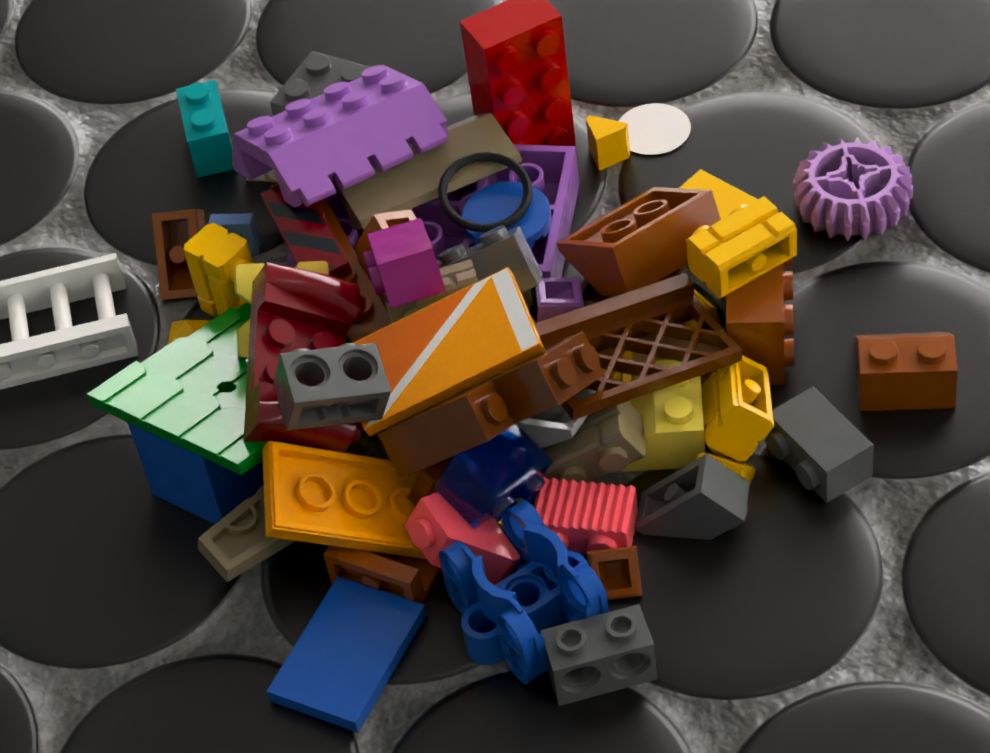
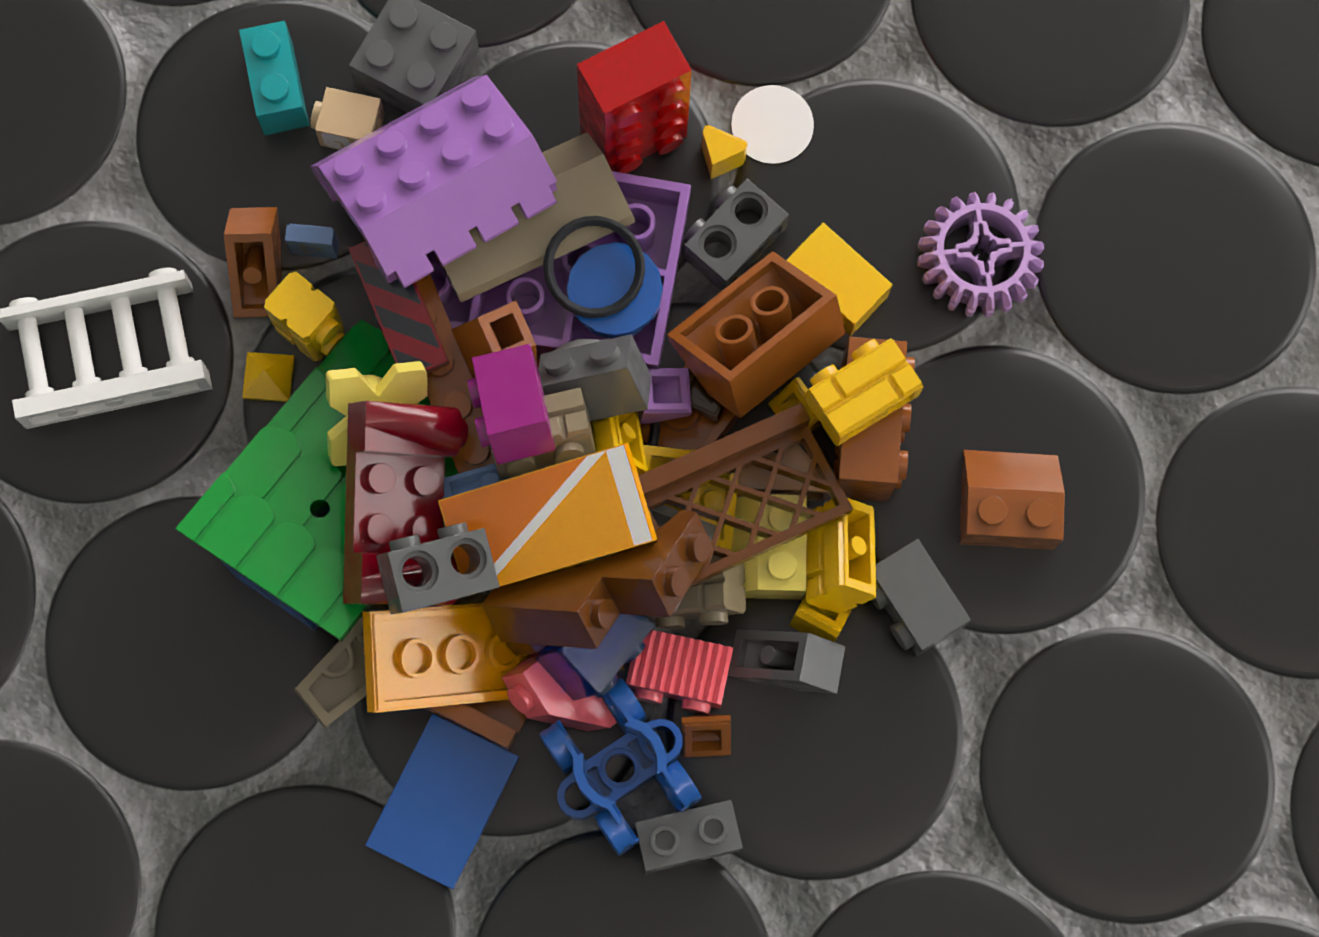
camera: 10 degrees left, 30 degrees up
(618, 183) = (743, 240): none -> dark grey brick

